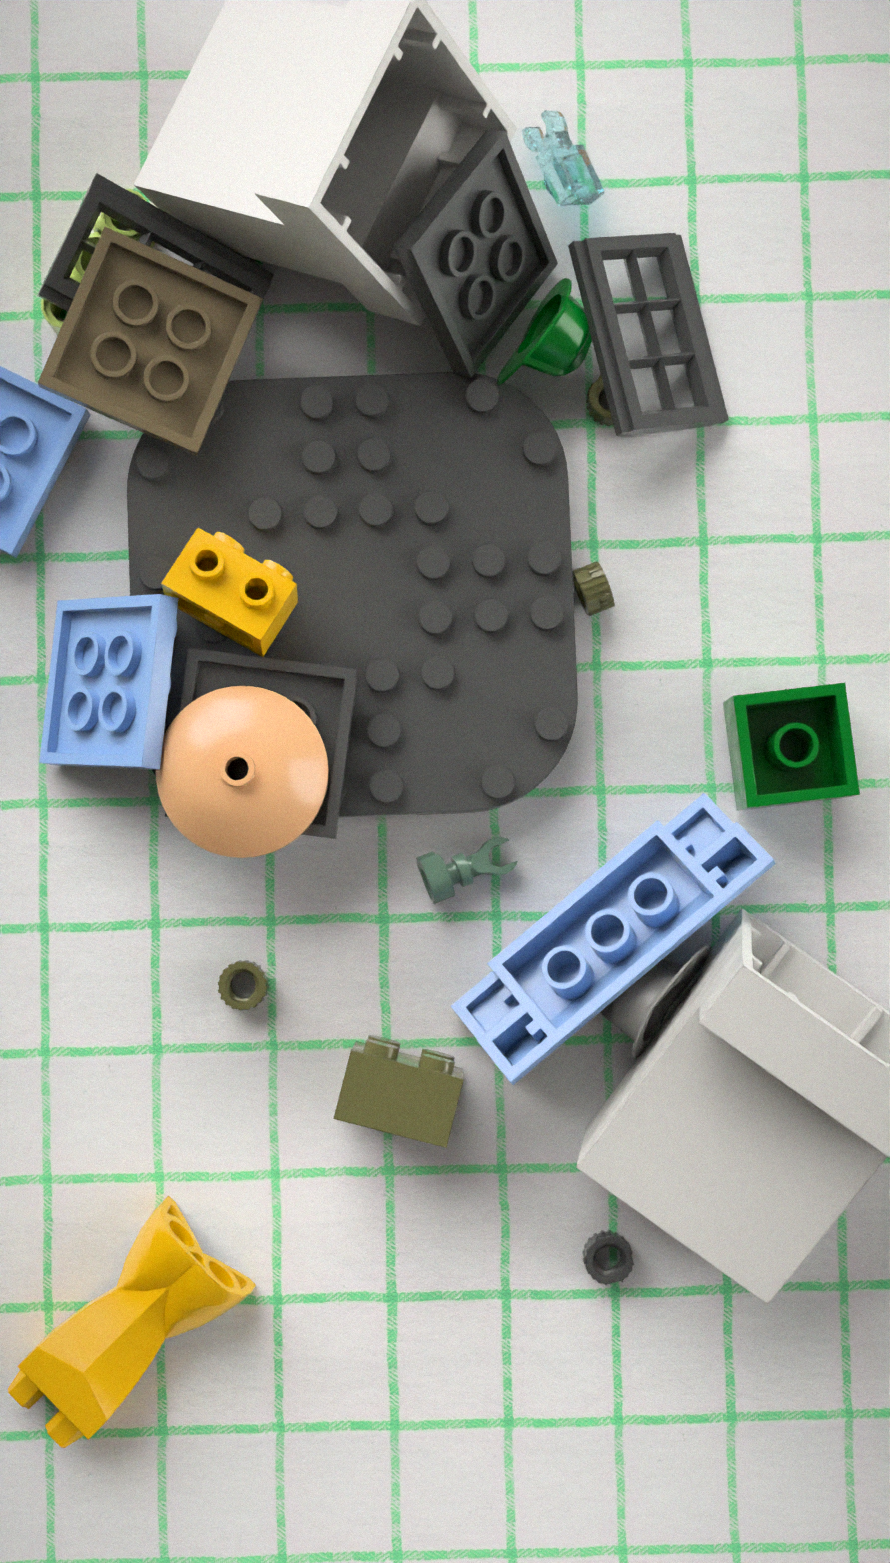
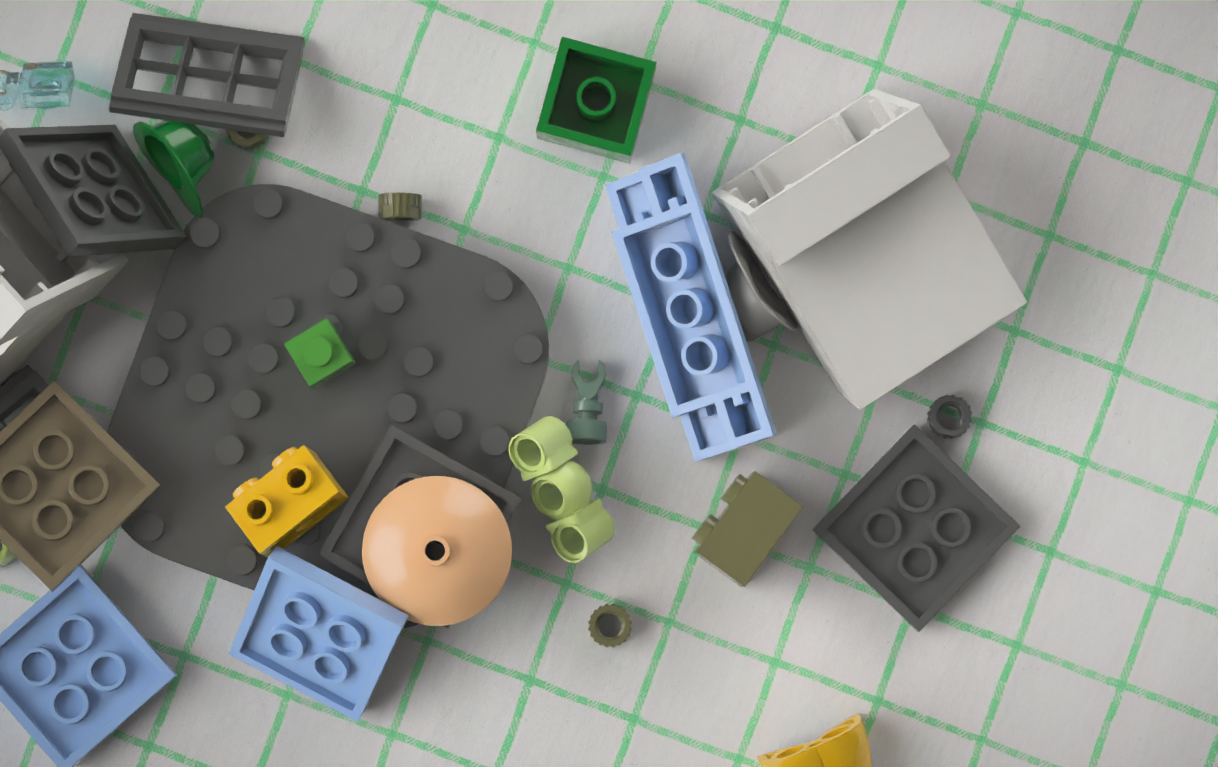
camera: 70 degrees left, 0 degrees up
(364, 877) = (561, 489): none -> yellowish green piece
(402, 563) = (320, 354): none -> bright green brick
(475, 1270) = (916, 528): none -> dark grey plate

